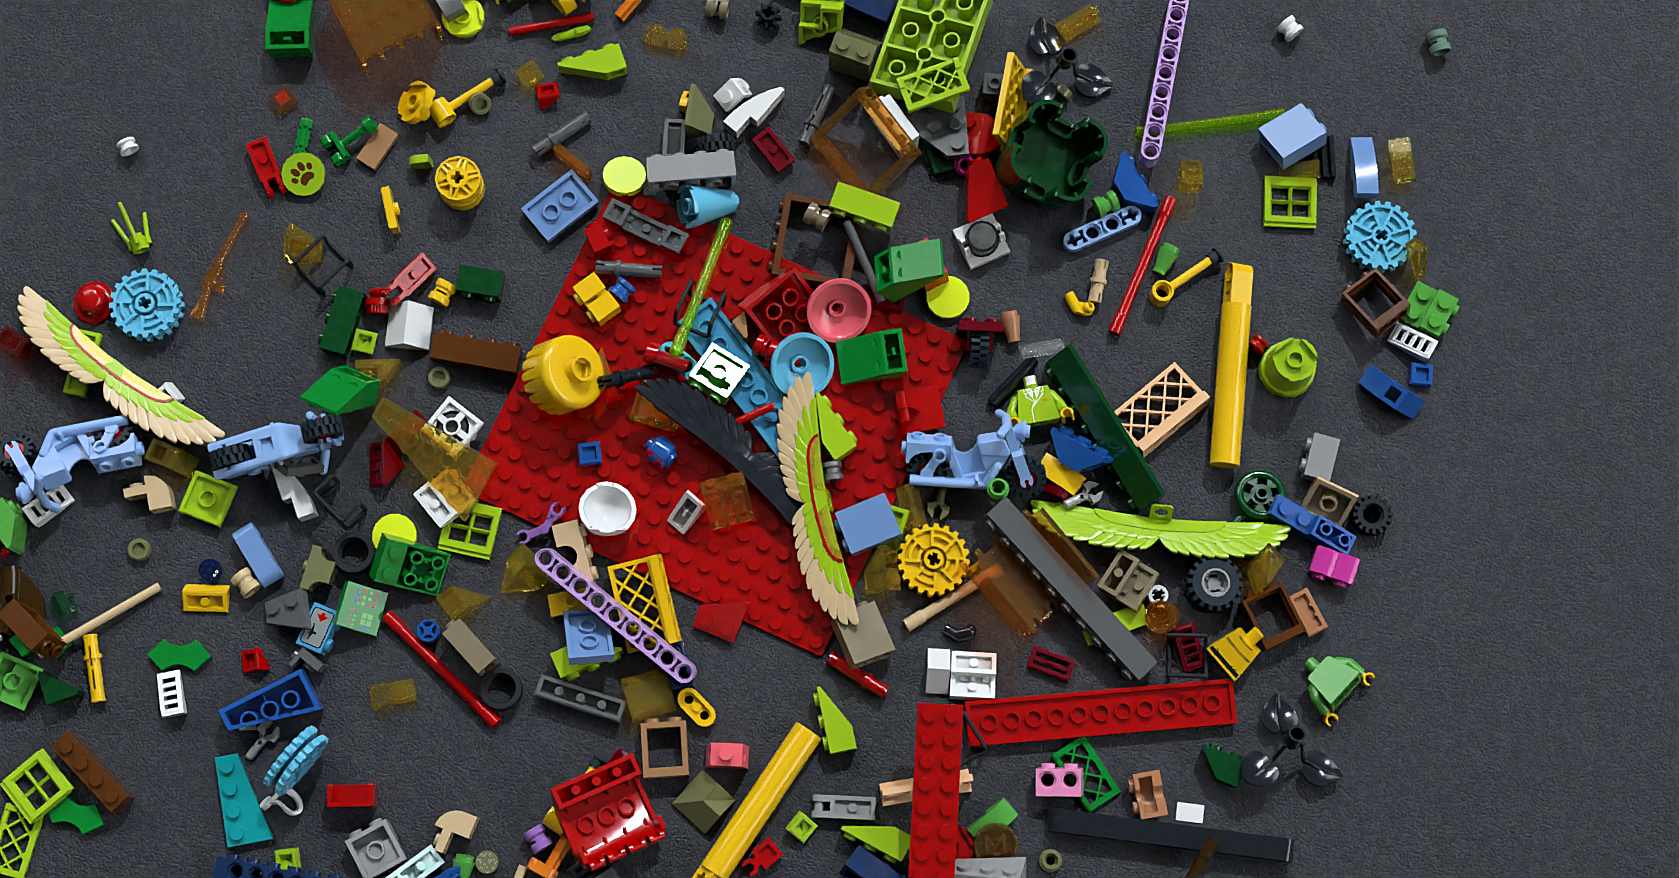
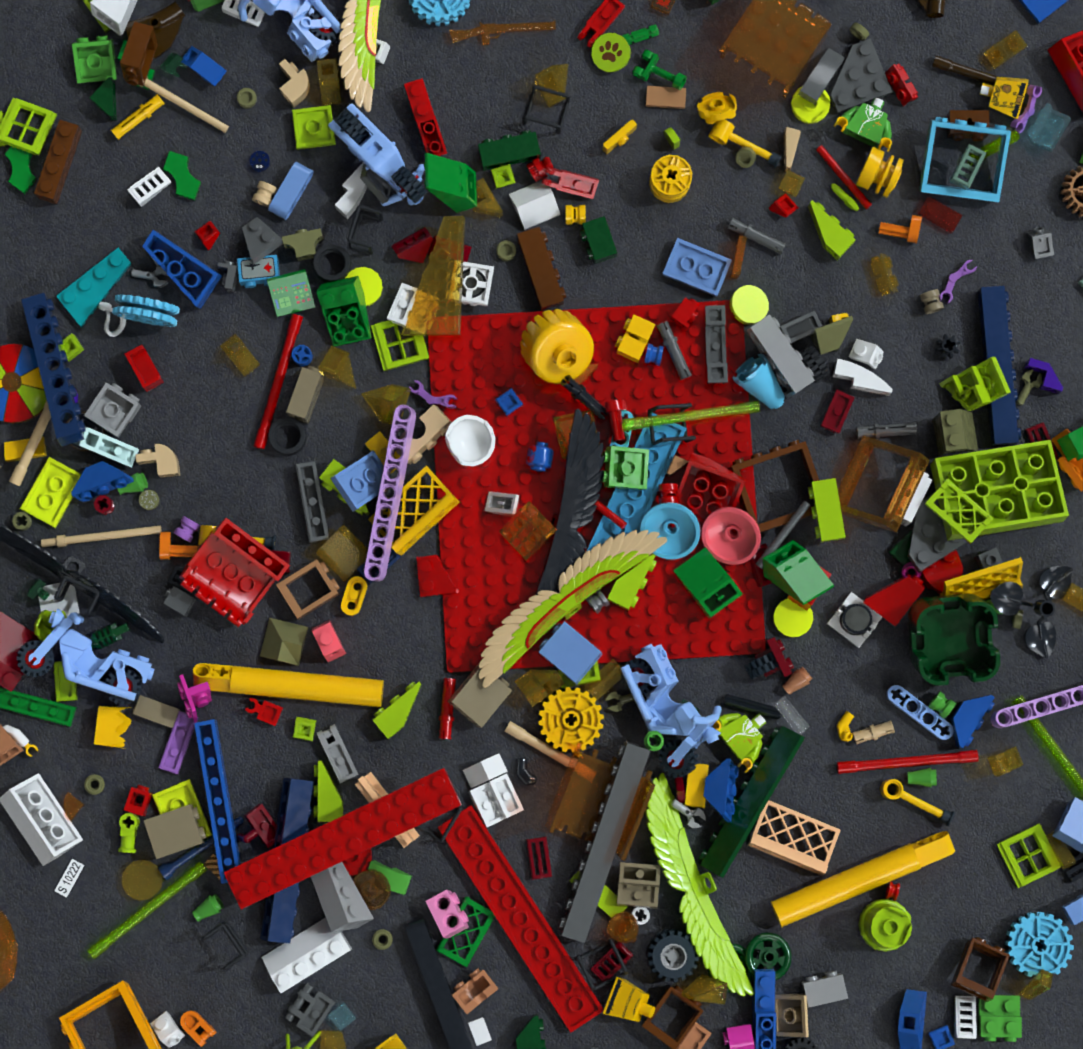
camera: 60 degrees right, 5 degrees up
(82, 574) = (203, 66): none -> blue slope
(206, 598) = (237, 170): yellow slope -> none
(262, 385) = (425, 117): none -> red slope
(487, 52) = (791, 139): none -> tan slope
(816, 216) = (797, 476): dark tan wheel -> none
(920, 409) = (686, 644): red plate -> none

